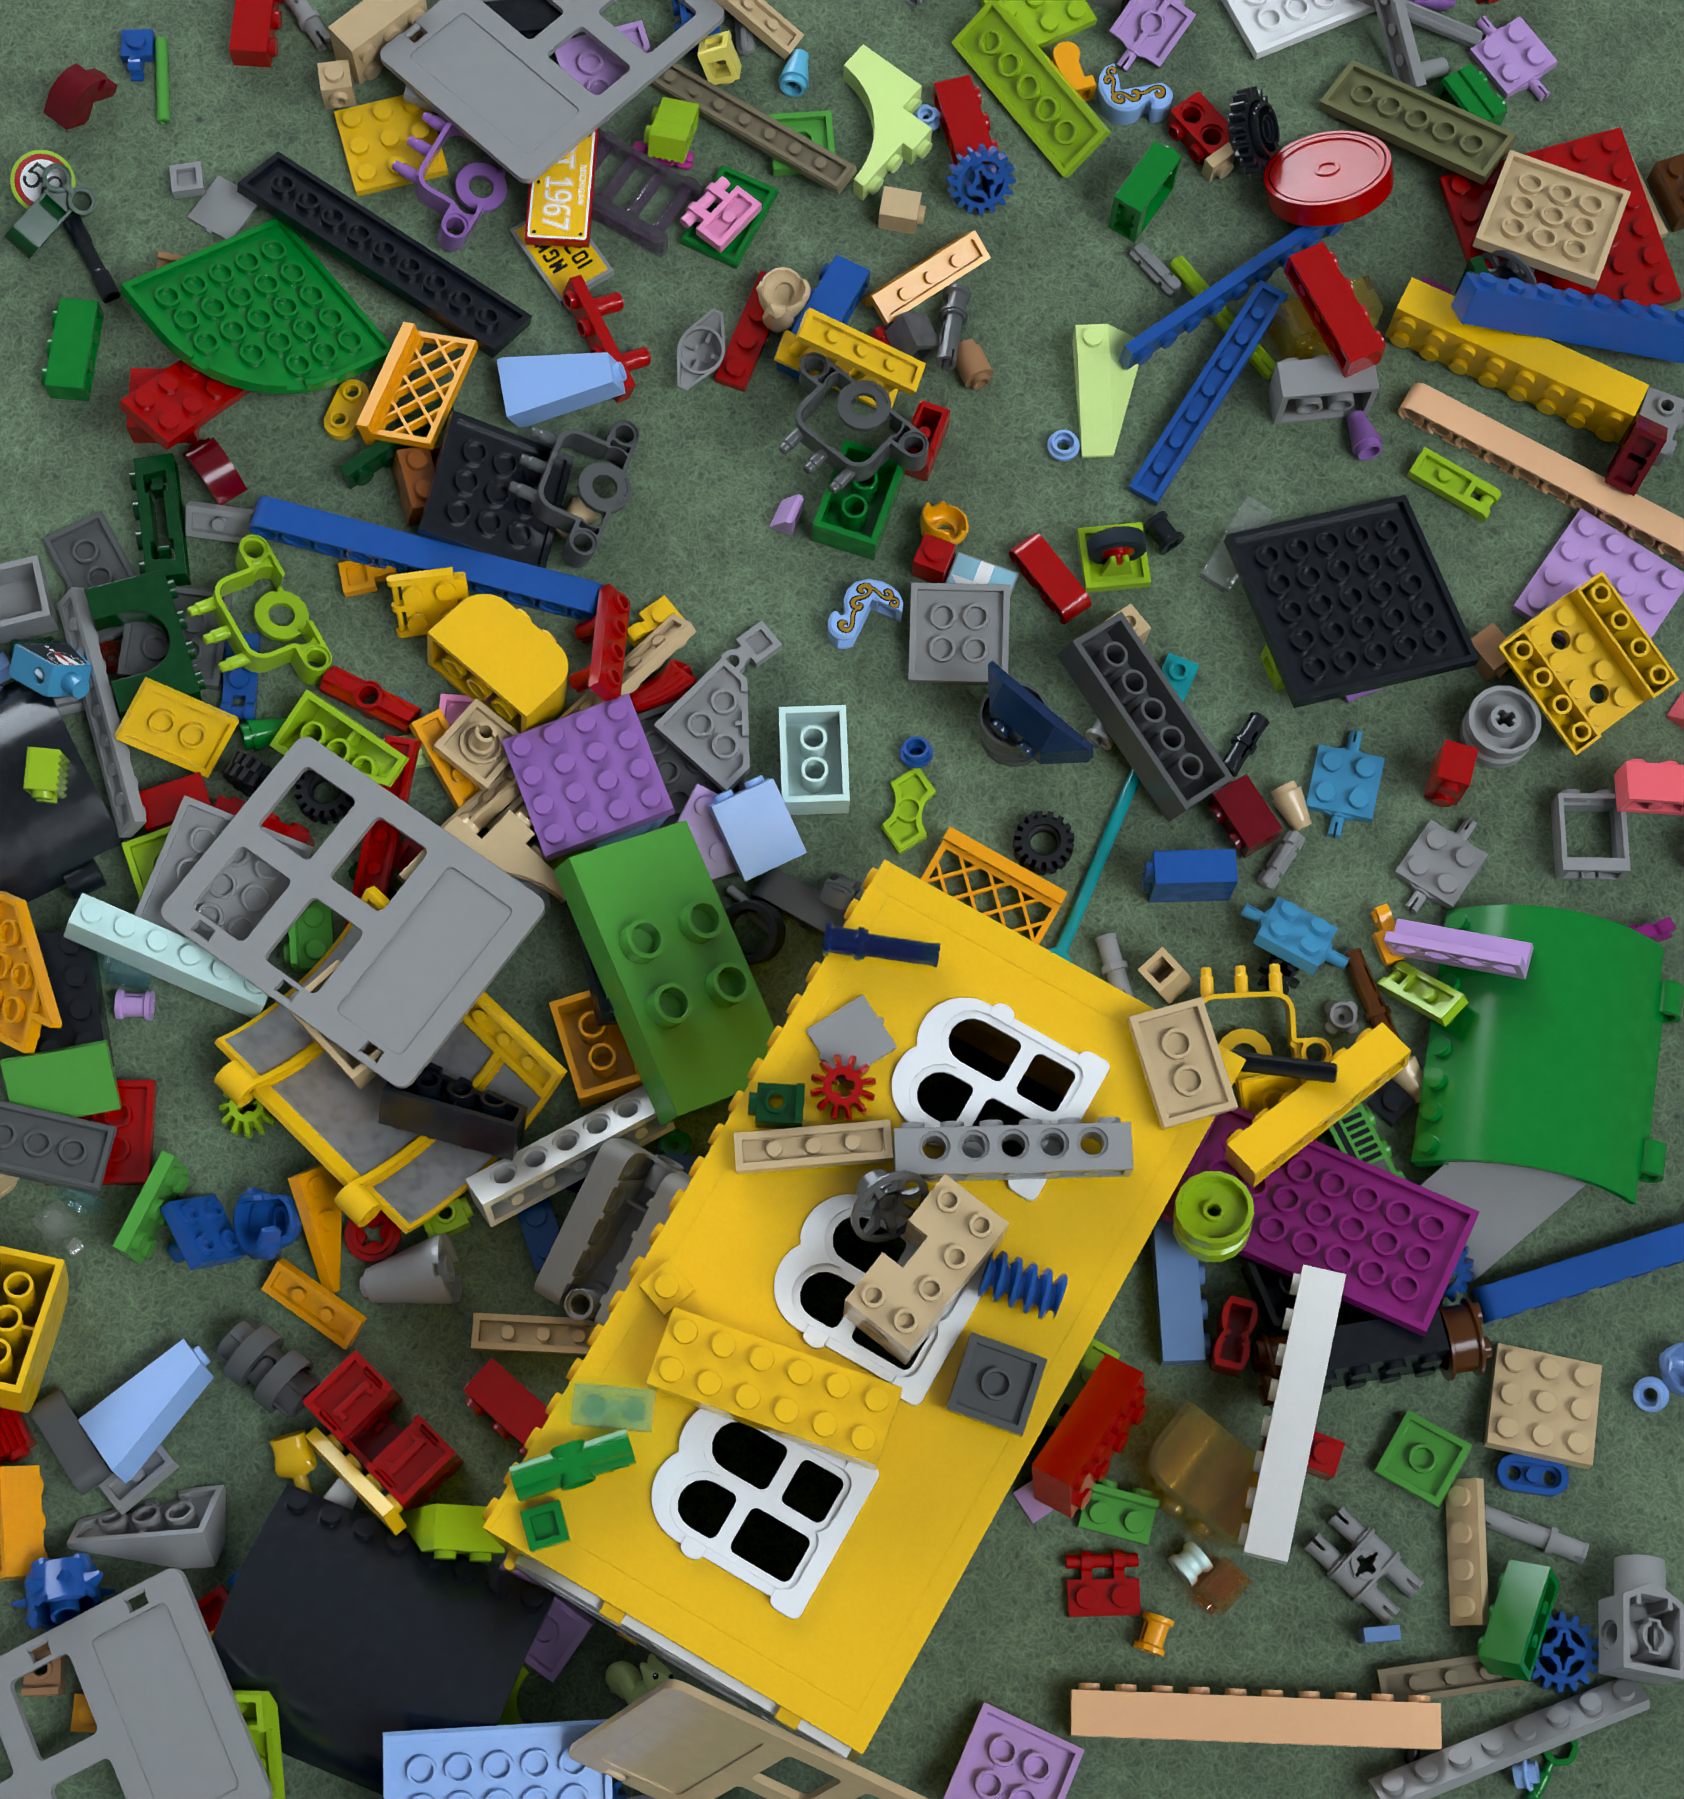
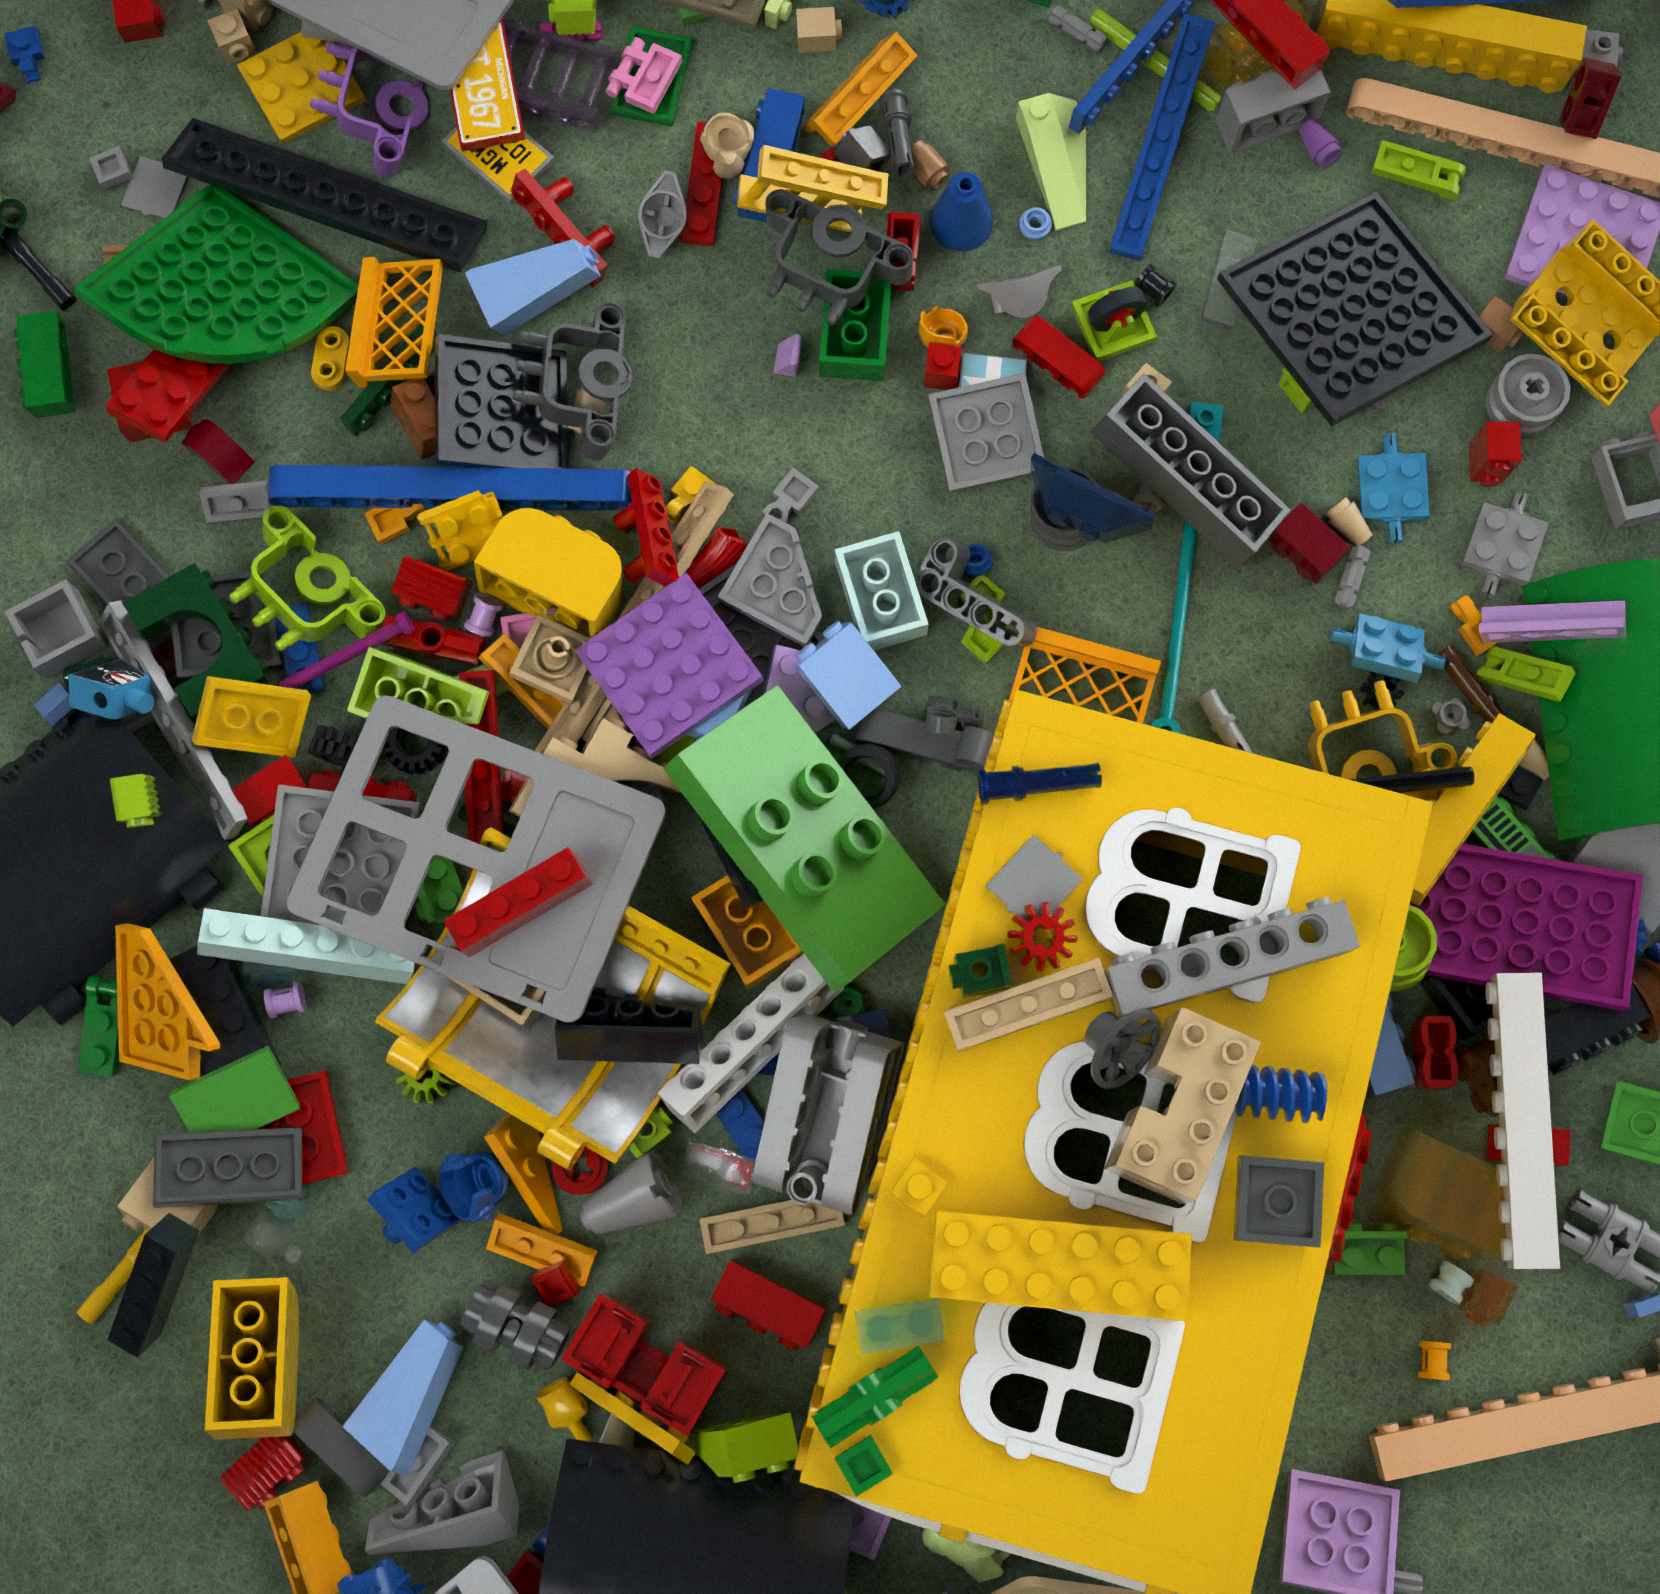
camera: 10 degrees left, 5 degrees up
(145, 1218) = (351, 1227): bright green plate -> none
(154, 473) = (159, 468): dark green brick -> none
(162, 80) = (58, 74): bright green piece -> none
(259, 732) = (334, 699): green cone -> none
(318, 1339) = (555, 1283): none -> red tile
(344, 676) = (401, 625): none -> magenta bar
(379, 959) = (517, 902): none -> red brick
(383, 649) = (431, 587): none -> red brick
(425, 687) = (483, 615): none -> lavender bush
(506, 1268) = (719, 1166): none -> clear slope
(857, 604) = (881, 423): light blue animal -> none
(903, 791) = (976, 601): none -> dark grey beam
(992, 420) = (962, 214): none -> blue cone
(1029, 511) = (1022, 295): none -> light grey hat
(1045, 824) = (1131, 601): black tyre -> none
(1103, 1596) = (1376, 1335): red plate -> none
(1166, 975) = (1276, 718): tan brick -> none
(1182, 1063) = (1373, 824): tan plate -> none
(1190, 875) = (1274, 615): blue brick -> none
(1245, 742) = (1288, 469): black pin -> none

